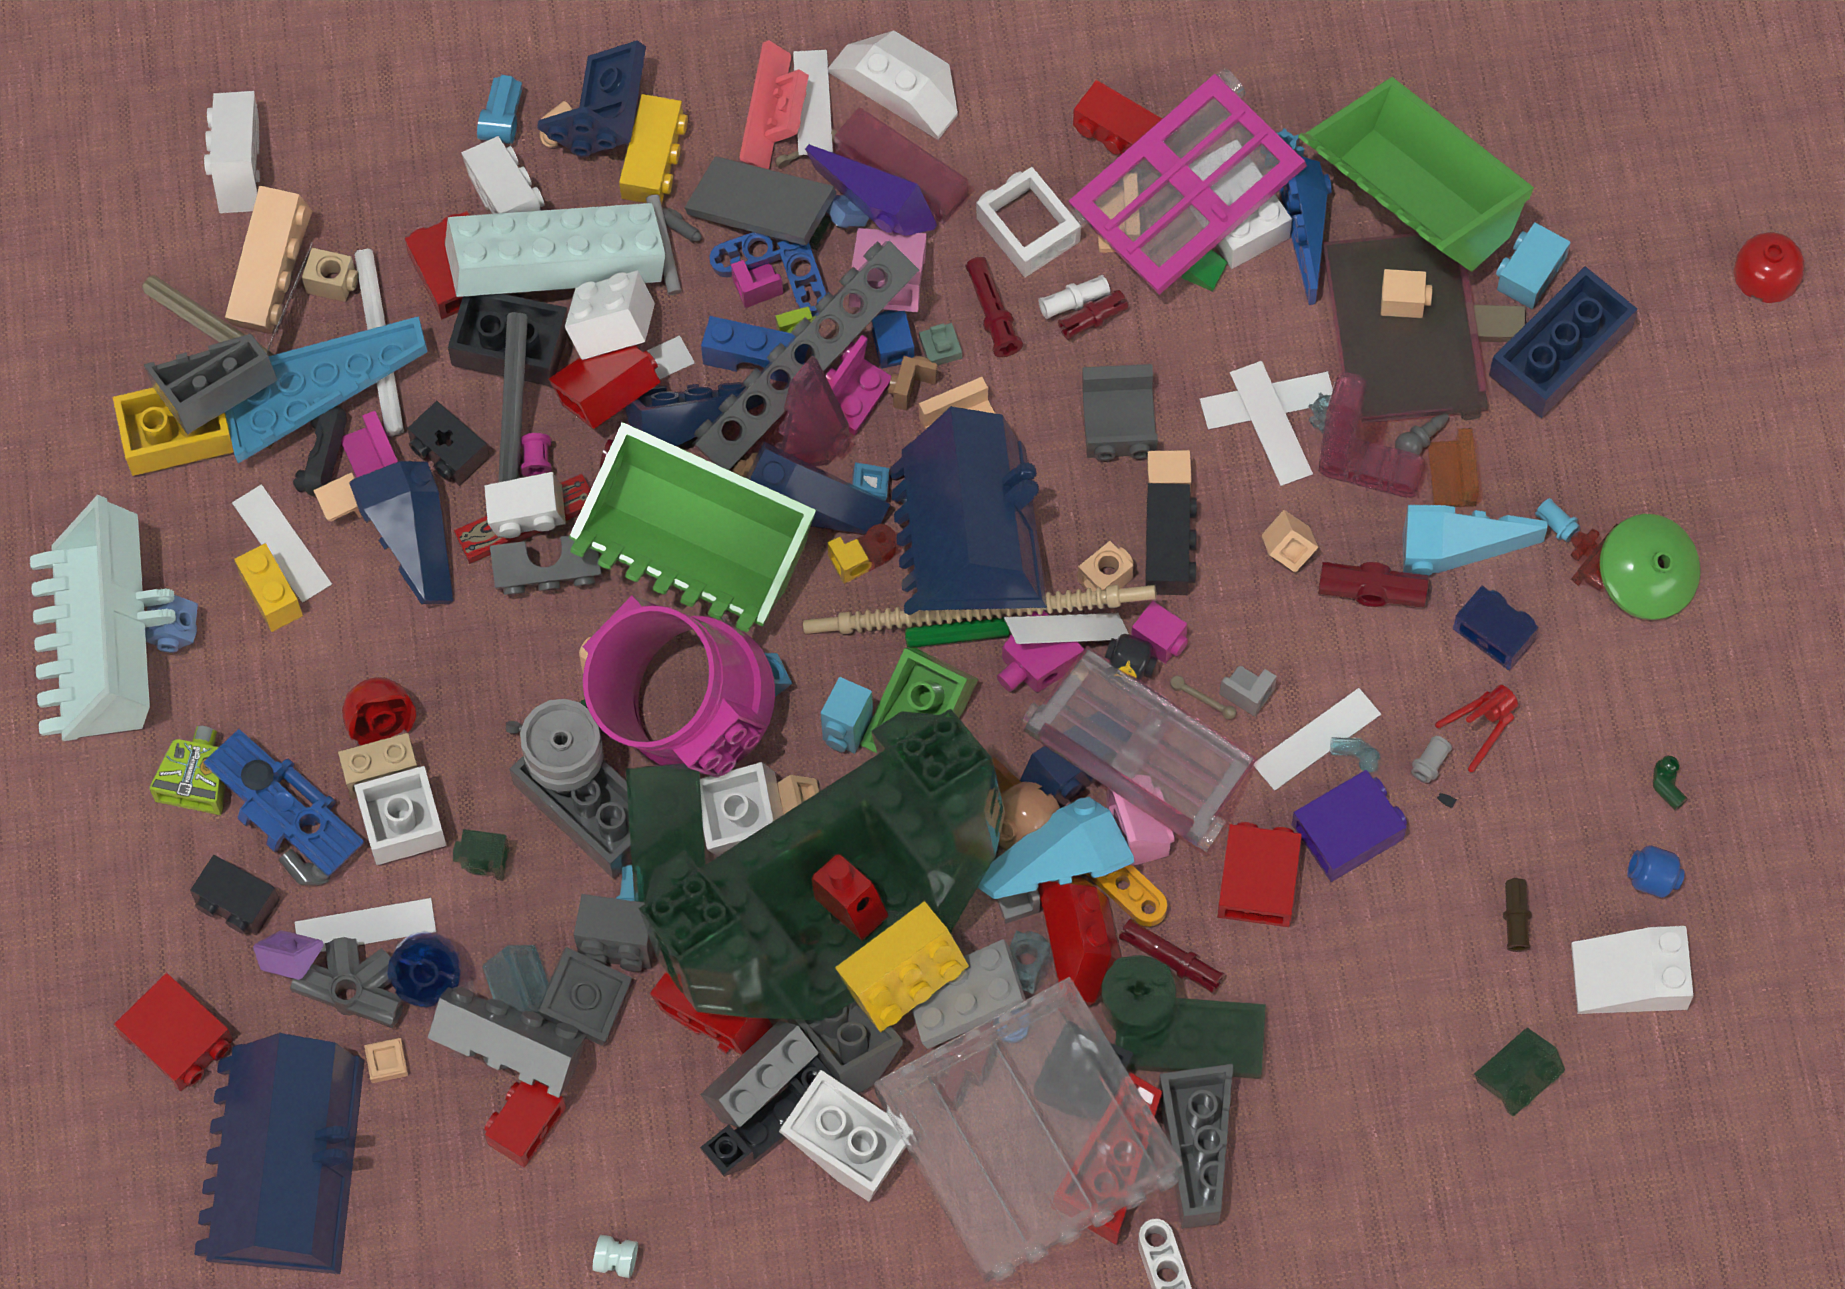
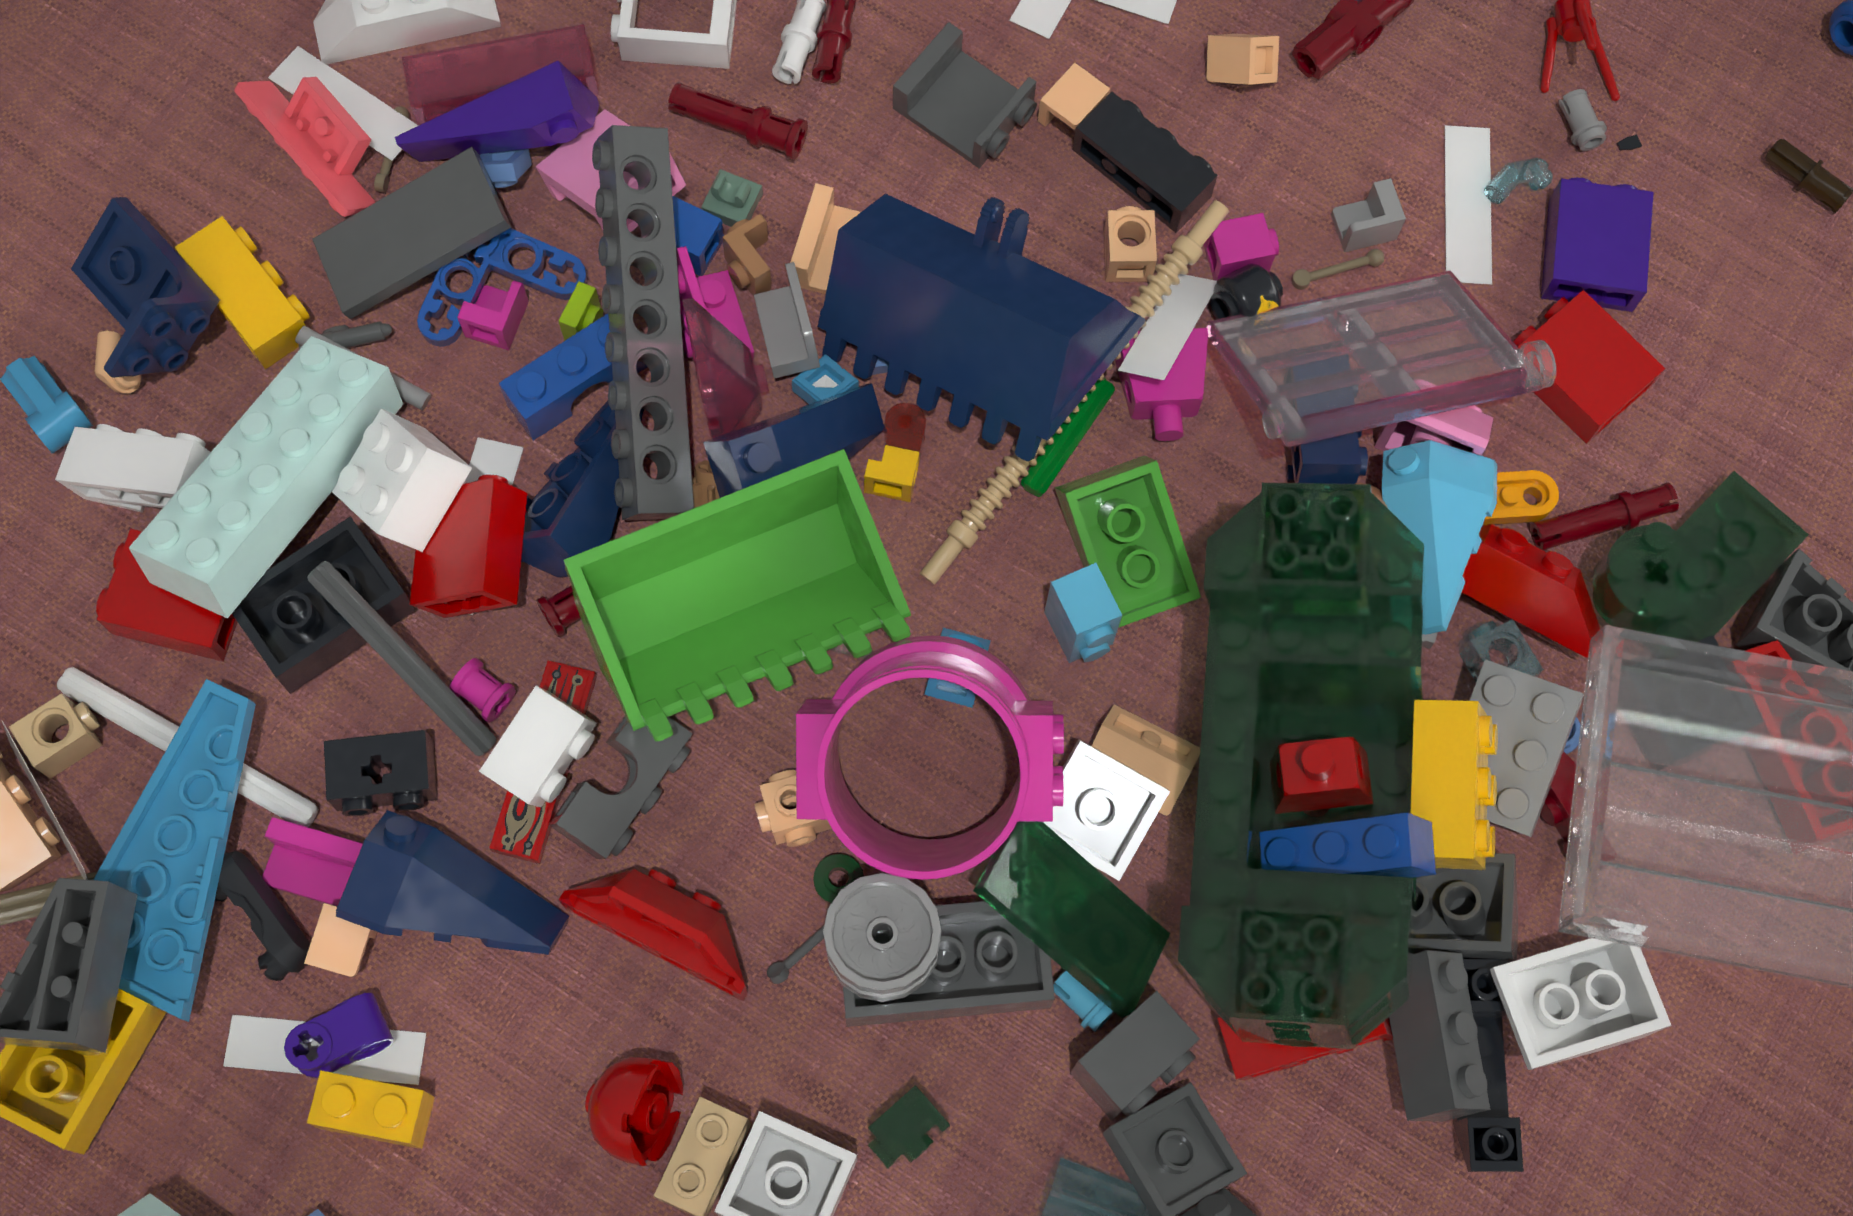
camera: 55 degrees left, 5 degrees up
(296, 544) = (345, 1035): none -> dark purple piece
(488, 649) = (663, 923): none -> red wedge
(814, 935) = (1366, 846): none -> blue arch
(885, 434) = (787, 328): none -> light grey panel

